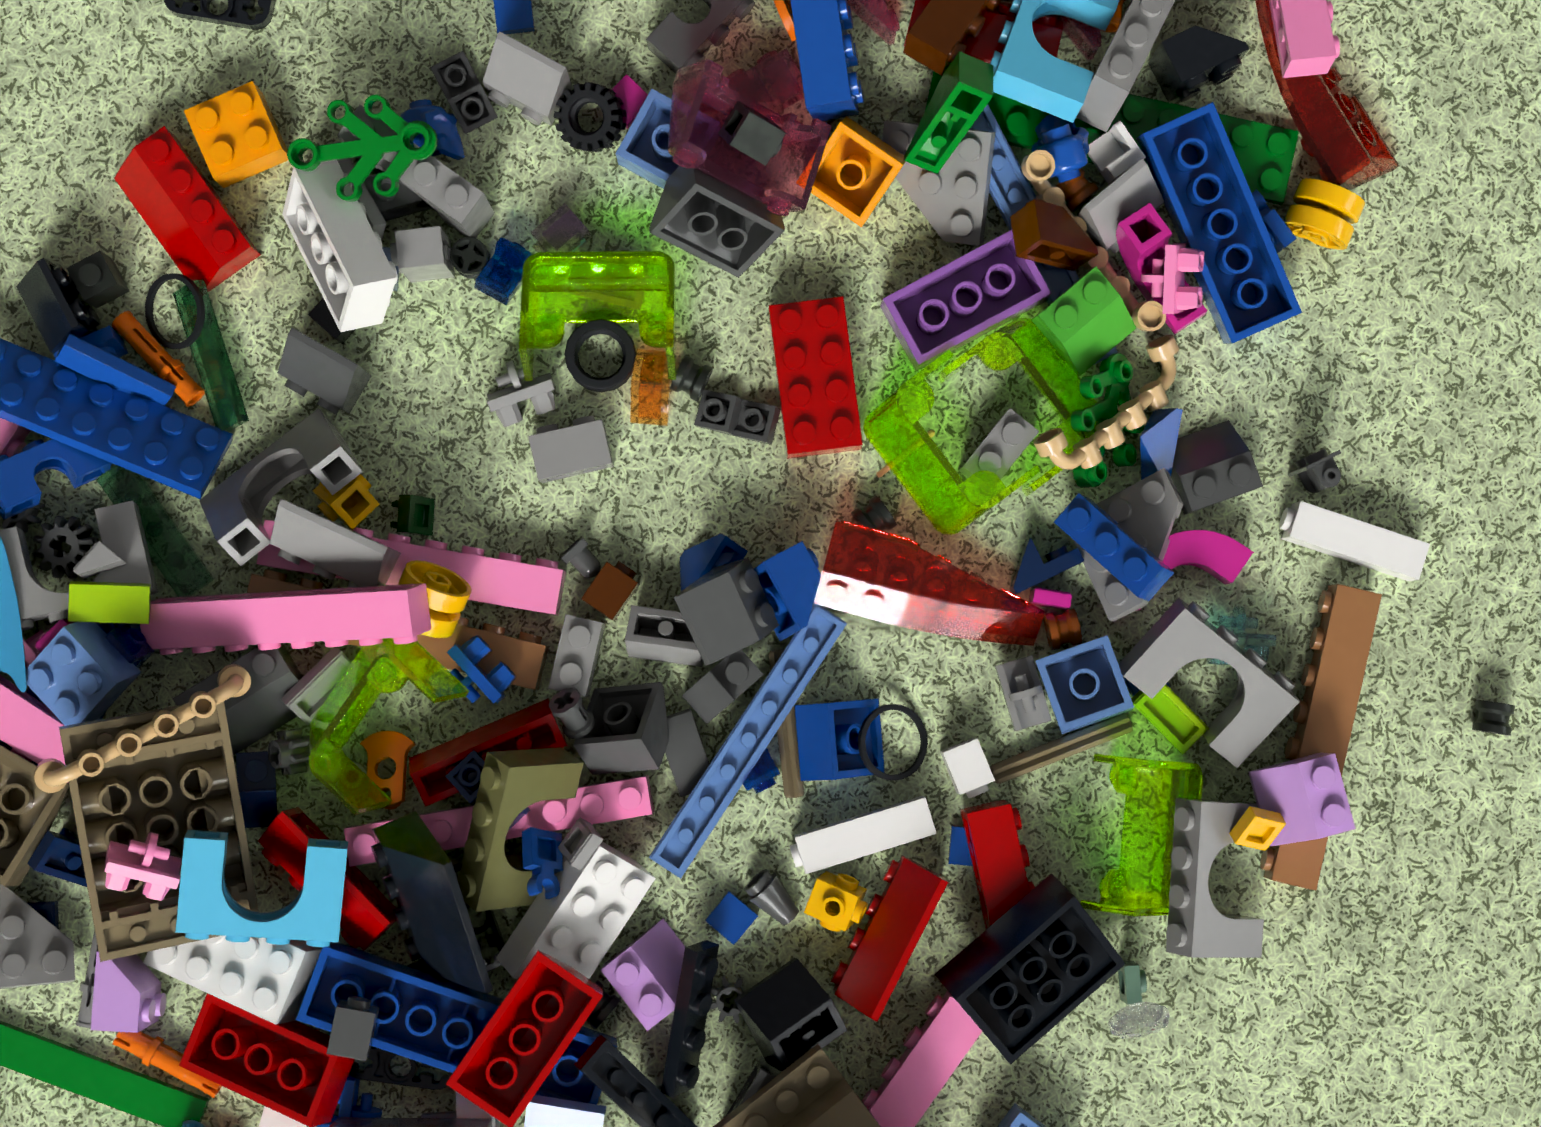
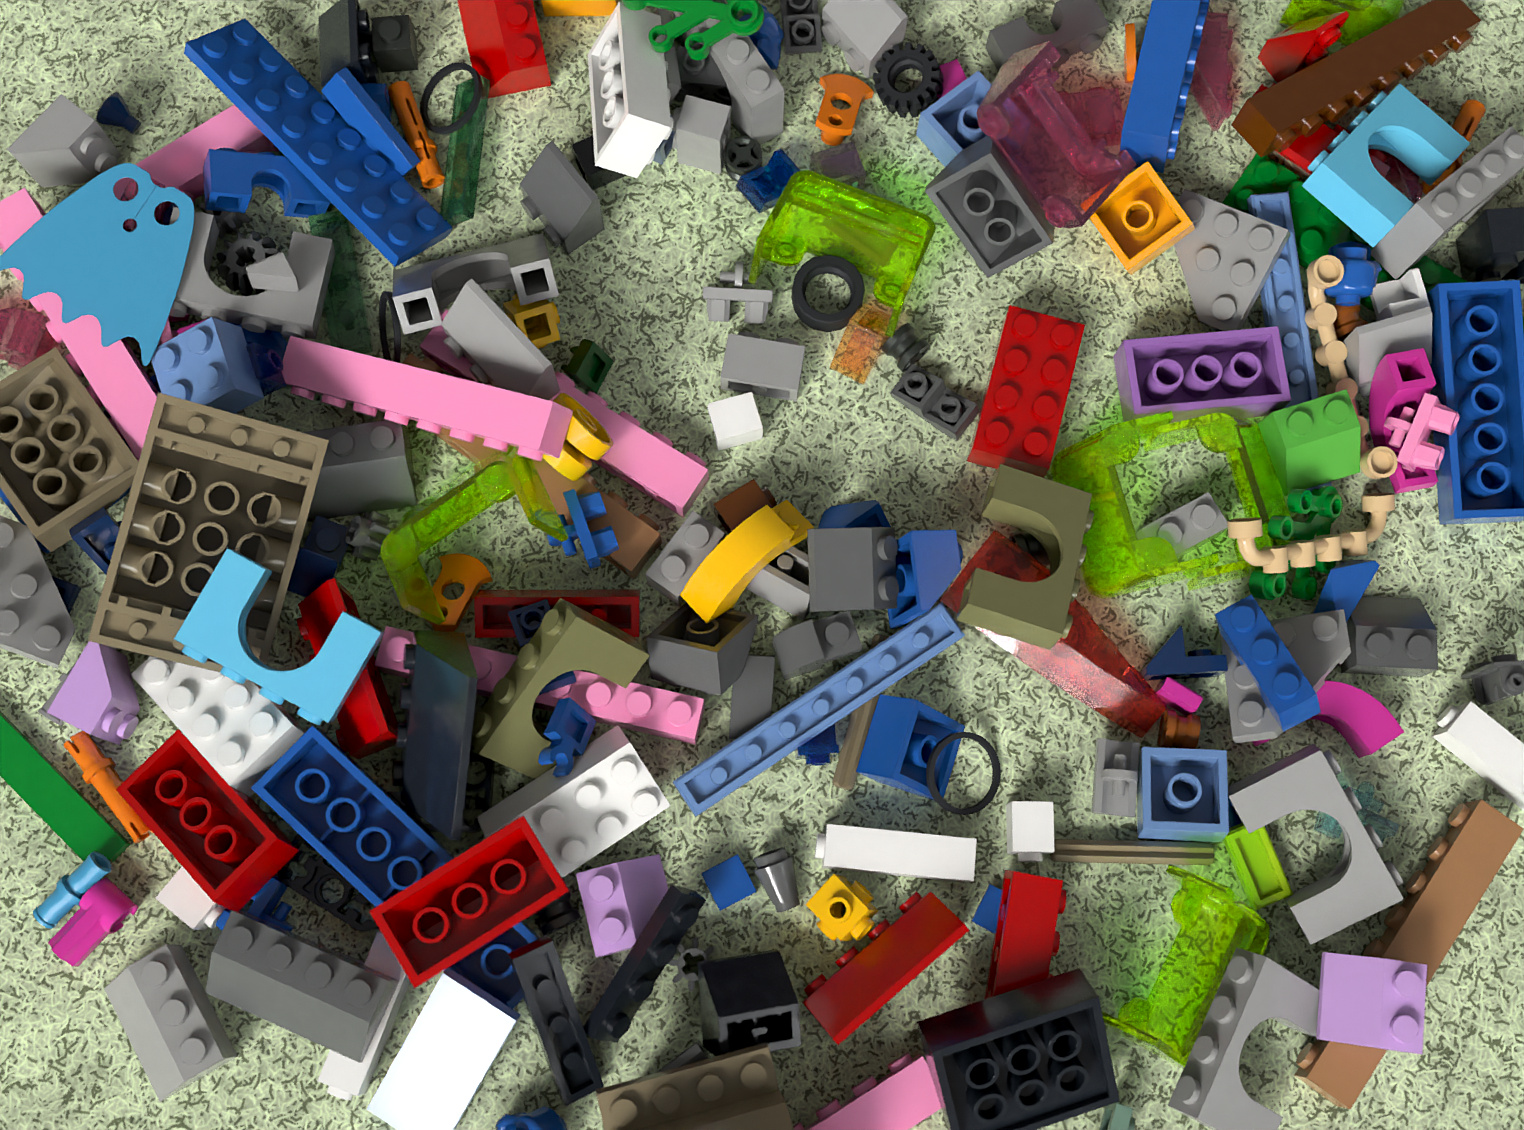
camera: 25 degrees right, 10 degrees down
(53, 775) = (130, 436): tan bar -> none
(109, 602) = (265, 318): lime tile -> none
(143, 863) = (177, 557): bright pink hips -> none
(241, 586) = (387, 296): none -> black piece
(313, 688) = (418, 484): light grey tile -> none
(353, 1028) = (303, 818): dark grey brick -> none
(532, 146) = (837, 122): none -> orange piece
(567, 512) = (735, 421): none -> white panel
(569, 708) = (658, 606): dark grey bush -> none
(580, 843) = (611, 734): light grey tile -> none
(581, 558) = (729, 470): dark grey piece -> none
(628, 638) = (741, 557): none -> yellow arch
(752, 133) = (1060, 138): pearl dark grey brick -> none
(887, 489) = (1058, 520): none -> olive arch
(951, 112) = (1258, 191): green slope -> none
(1050, 236) = (1310, 347): reddish brown slope -> none
(1257, 828) = (1314, 1012): yellow plate -> none

